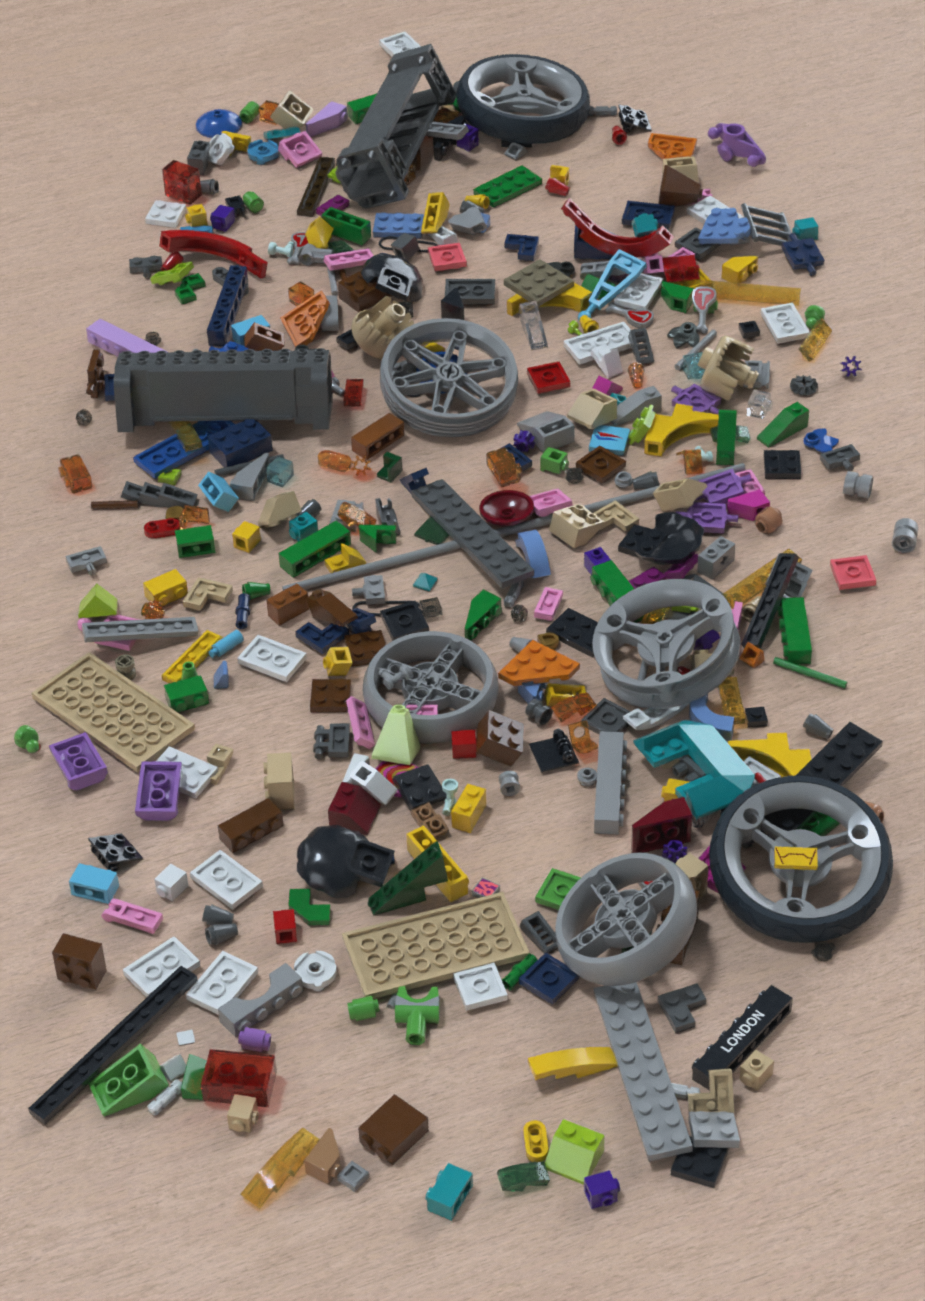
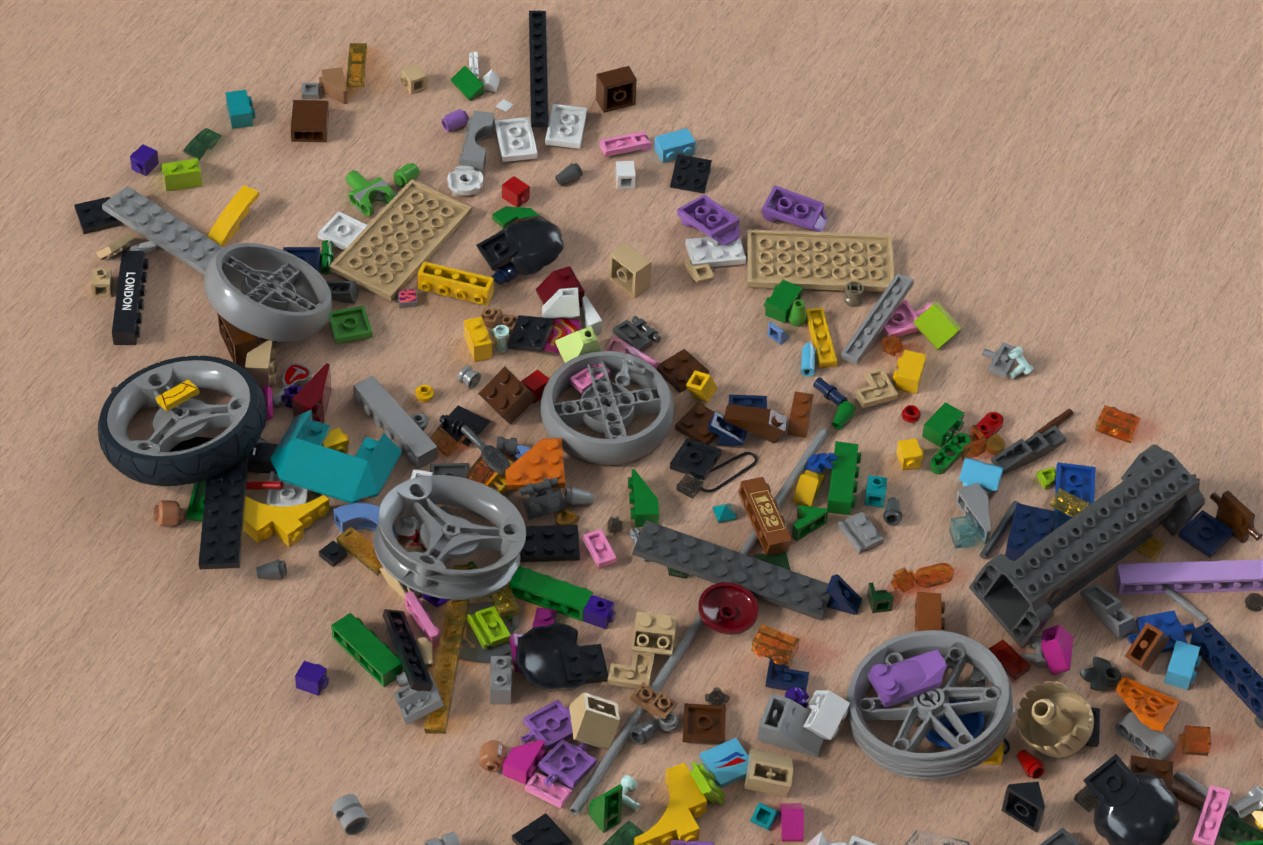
camera: 135 degrees right, 5 degrees up
(27, 738) = (851, 207): bright green animal -> none
(78, 547) = (1024, 367): none -> light aqua piece
(128, 1081) = (502, 57): bright green slope -> none
(205, 564) = (911, 414): none -> red plate
(220, 932) = (554, 165): dark grey cone -> none
(226, 879) = (592, 199): white plate -> none
(230, 523) = (948, 461): none -> green beam
(239, 1074) = (435, 89): clear red brick -> none
(250, 825) = (620, 231): reddish brown brick -> none
(272, 658) = (759, 368): white plate -> none
(279, 508) = (907, 485): tan slope -> none
(319, 565) = (819, 461): none -> blue plate
(353, 515) = (843, 520): clear orange slope -> none
(372, 590) = (748, 470): light grey plate -> none
(386, 514) = (821, 544): flat silver hinge -> none
(408, 546) = (765, 516): none -> dark orange brick
(409, 884) = (451, 251): dark green slope -> none
(449, 385) = (907, 677): none -> medium lavender slope
(515, 412) = (826, 713): none -> white brick
(534, 552) = (663, 576): medium blue arch -> none
(535, 1143) = (213, 165): yellow plate -> none
(548, 377) = (859, 797): red plate -> none
(550, 501) = (702, 645): bright pink plate -> none
(554, 460) = (746, 695): bright green brick -> none
(558, 797) = (424, 393): none -> yellow plate
(562, 702) = (490, 454): none -> dark grey piece
(564, 649) = (543, 503): none -> dark grey plate
(623, 487) = (651, 701): none -> medium nougat slope
(633, 406) = (738, 815): light grey slope -> none
(677, 1006) = (194, 298): dark grey plate -> none
(692, 461) = (625, 775): clear orange bracket -> none
(713, 1129) = (99, 229): light grey plate -> none
(752, 655) = (380, 606): orange slope -> none
(810, 672) = (315, 624): green bar -> none
(853, 572) = (368, 747): coral plate -> none
(855, 634) = (311, 678): none -> dark purple brick

